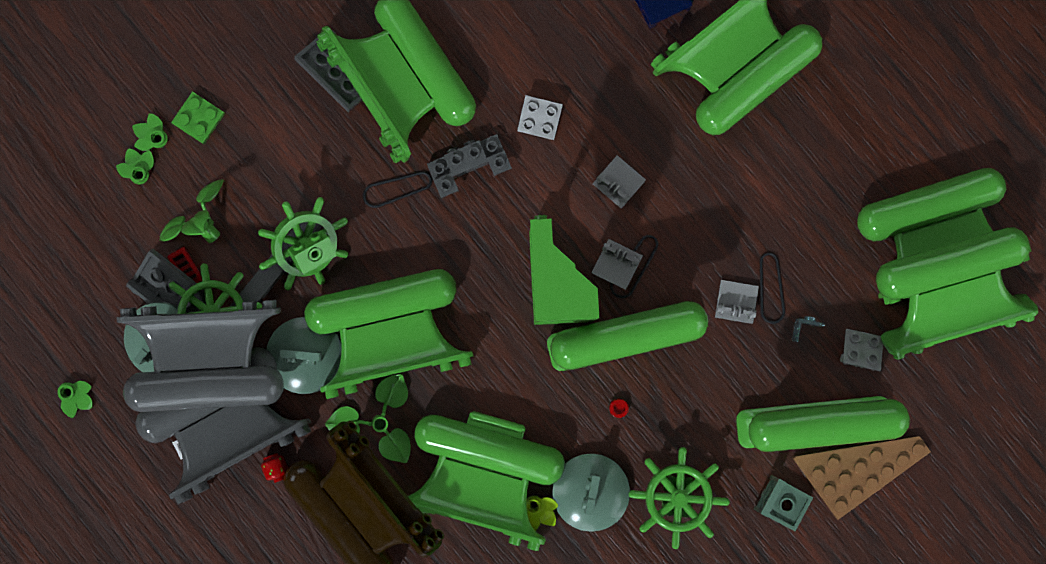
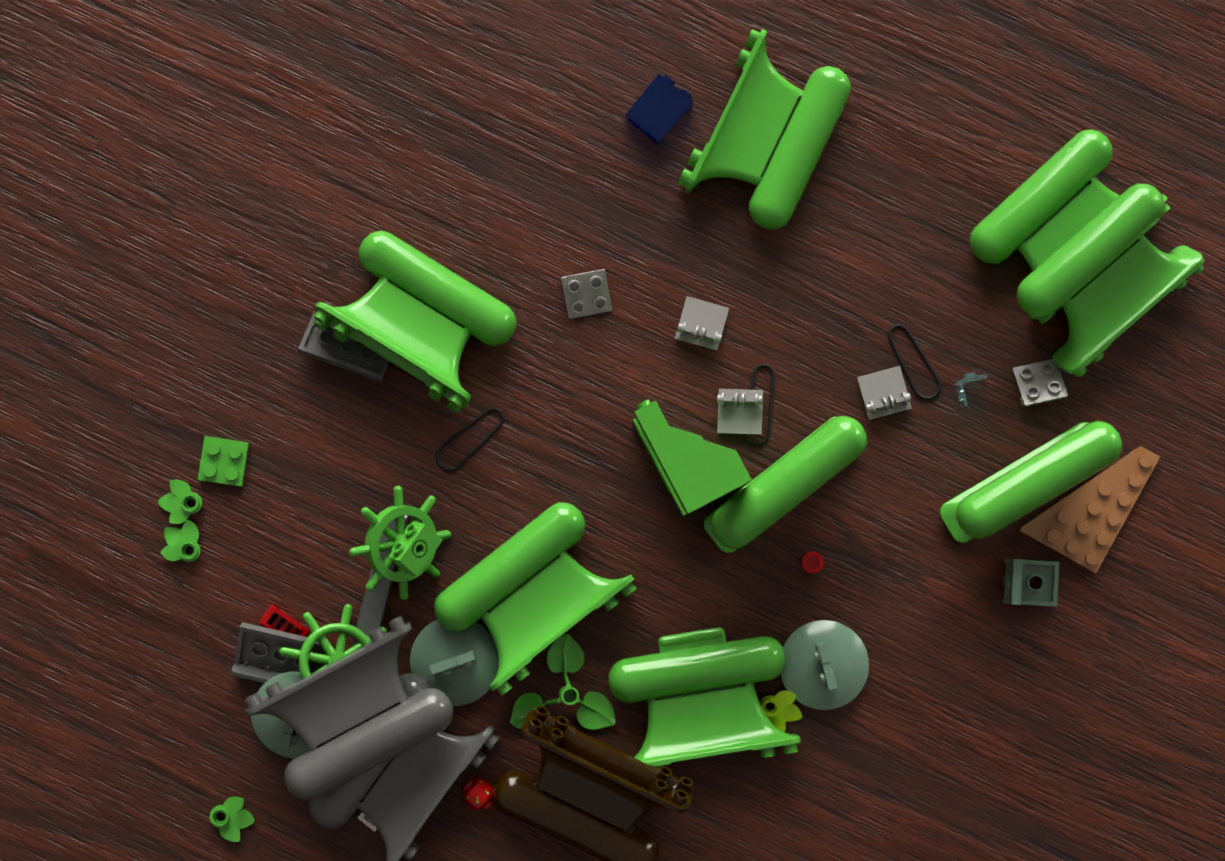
camera: 25 degrees left, 0 degrees up
(201, 223) = (281, 574): bright green plant -> none
(466, 159) = (529, 375): dark grey bracket -> none
(679, 497) = (918, 627): bright green piece -> none

